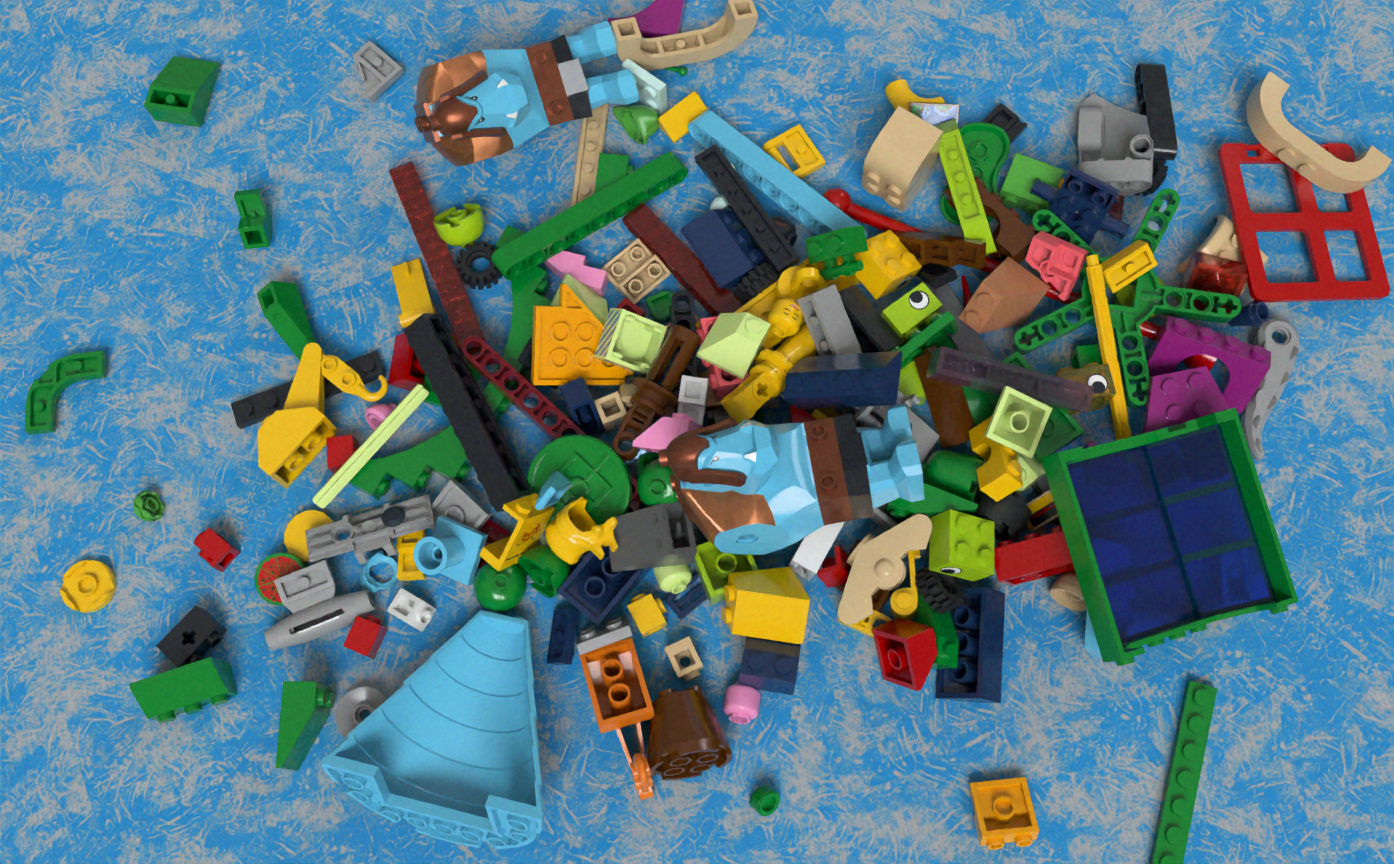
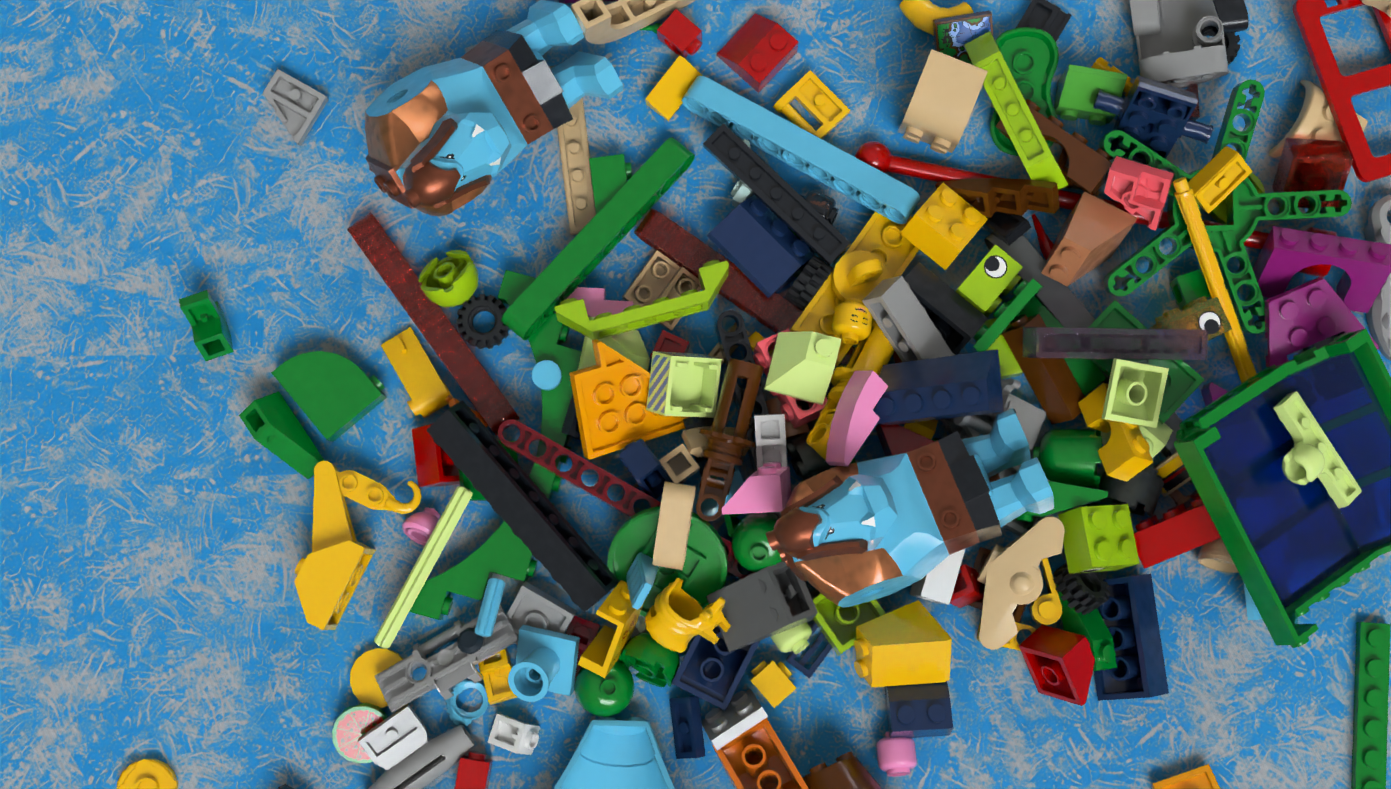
camera: 15 degrees left, 10 degrees up
(44, 393) = (30, 570): green plate -> none
(148, 506) = (188, 686): bright green plate -> none
(182, 91) = (72, 179): green slope -> none
(215, 549) = (278, 717): red brick -> none
(261, 405) = (298, 529): black plate -> none
(338, 292) = (330, 390): none -> green brick
(340, 450) = (389, 578): red brick -> none
(417, 491) = (490, 607): none -> medium azure axle
(518, 313) = (546, 375): none -> medium azure tile
(589, 449) = (673, 525): none -> tan beam
(615, 279) = (574, 313): none -> lime slope
(637, 121) = (625, 109): bright green hat -> none
(650, 89) = (627, 66): light aqua plate -> none
(659, 306) = (701, 325): green tile -> none
(683, 649) = (813, 716): tan brick -> none
(699, 77) = (680, 34): none -> red brick
(761, 104) = (759, 51): none -> red slope
(766, 385) = (854, 417): none -> bright pink slope
(835, 245) = (889, 222): green brick -> none
(1170, 513) = (1313, 453): none -> yellowish green plate
(1251, 314) = (1364, 196): dark blue cone -> none

